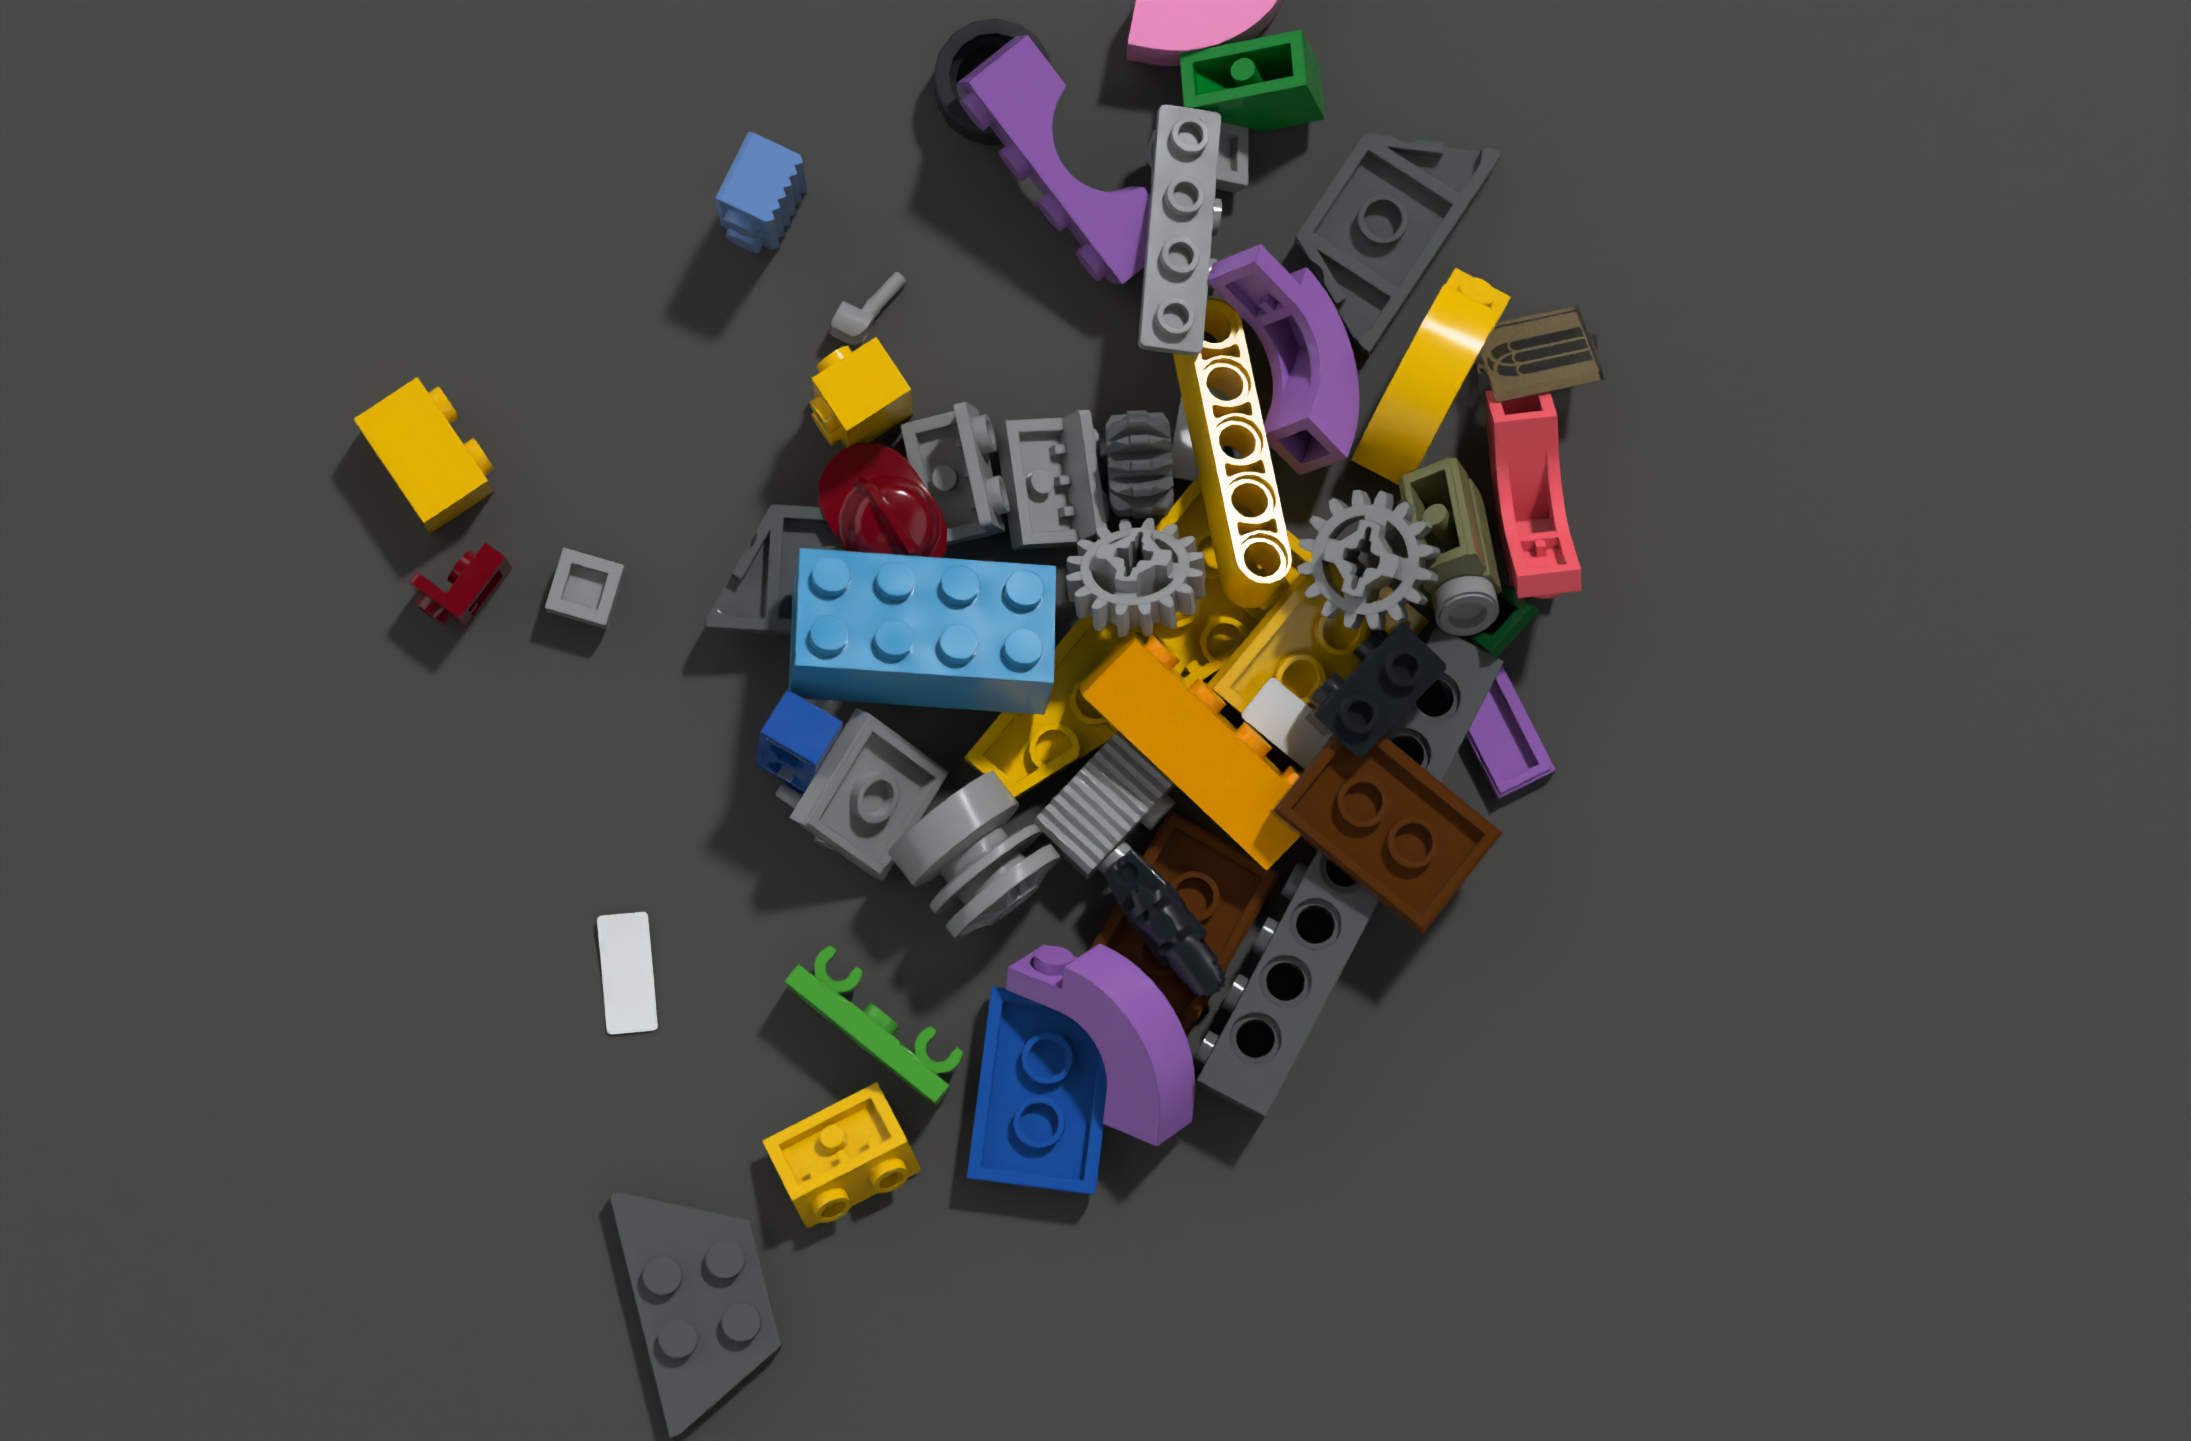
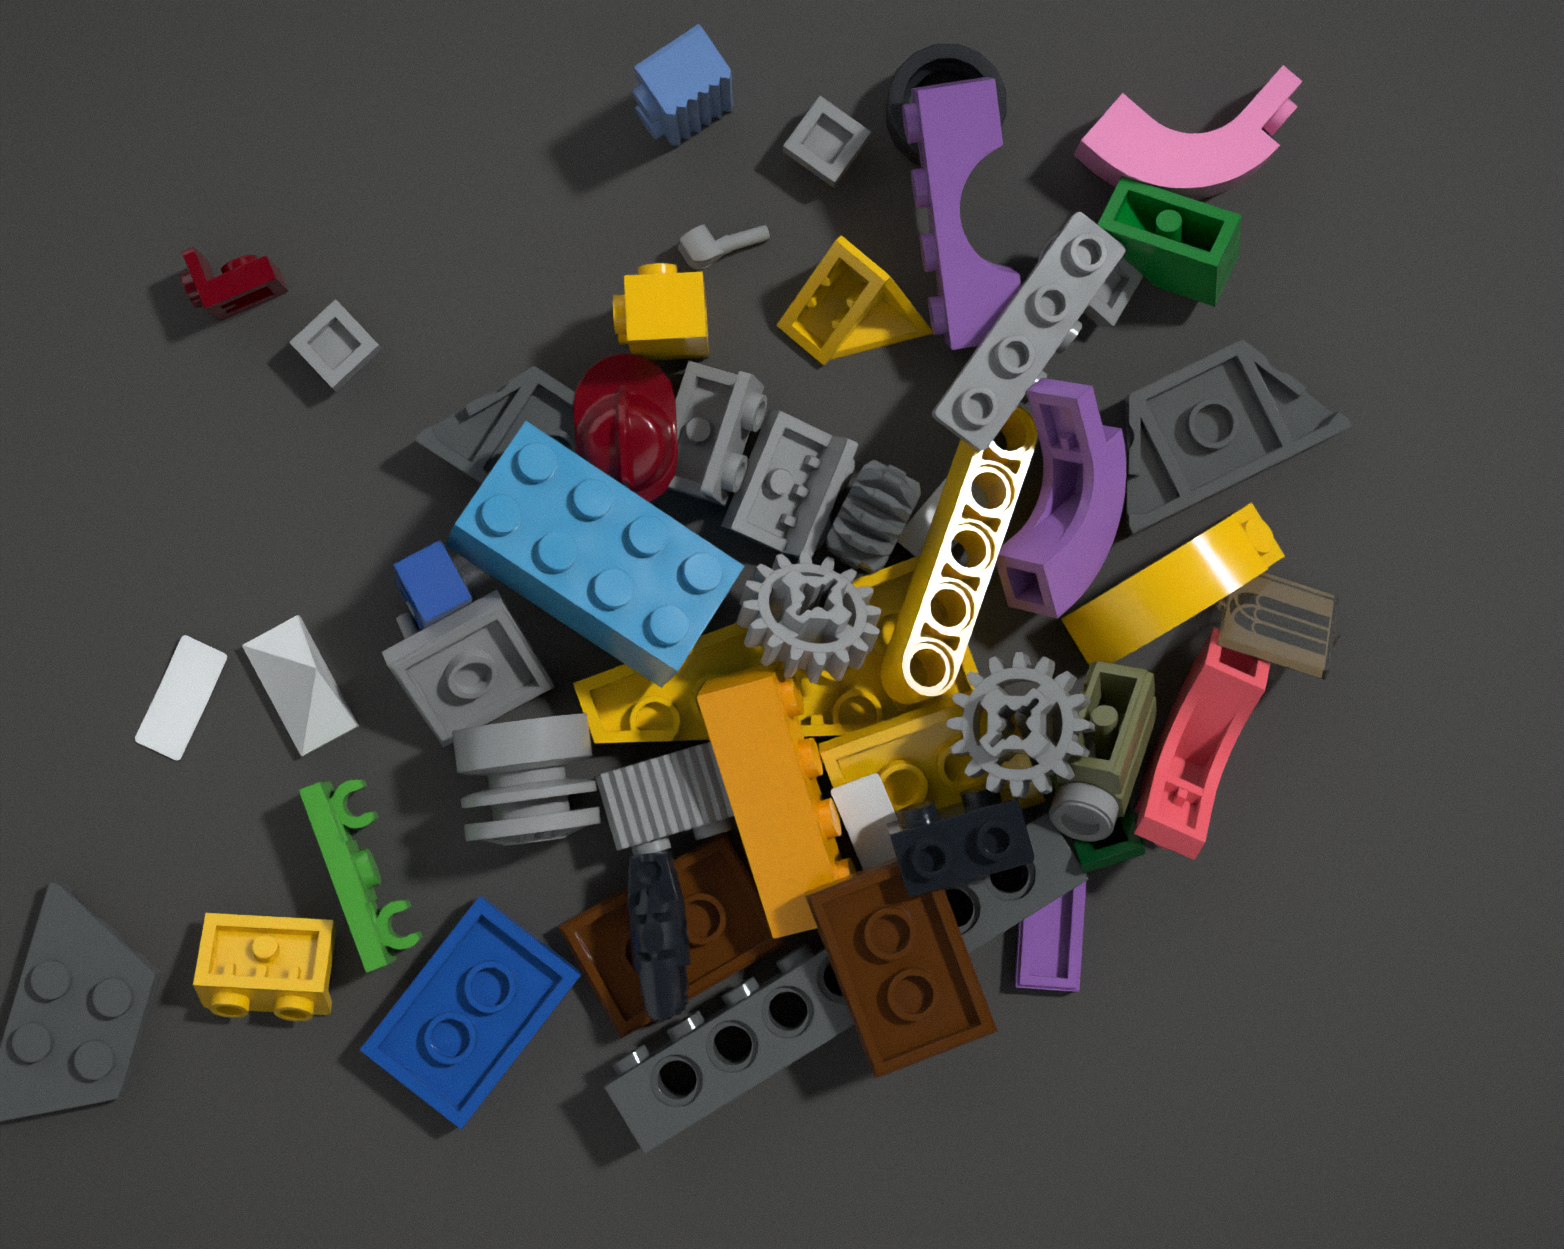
camera: 30 degrees right, 5 degrees up
(425, 454) = (266, 149): yellow brick -> none
(726, 900) = (300, 685): none -> white slope
(907, 169) = (826, 141): none -> light grey plate
(1013, 299) = (850, 307): none -> yellow slope
(1132, 1027) = (571, 1002): medium lavender arch -> none

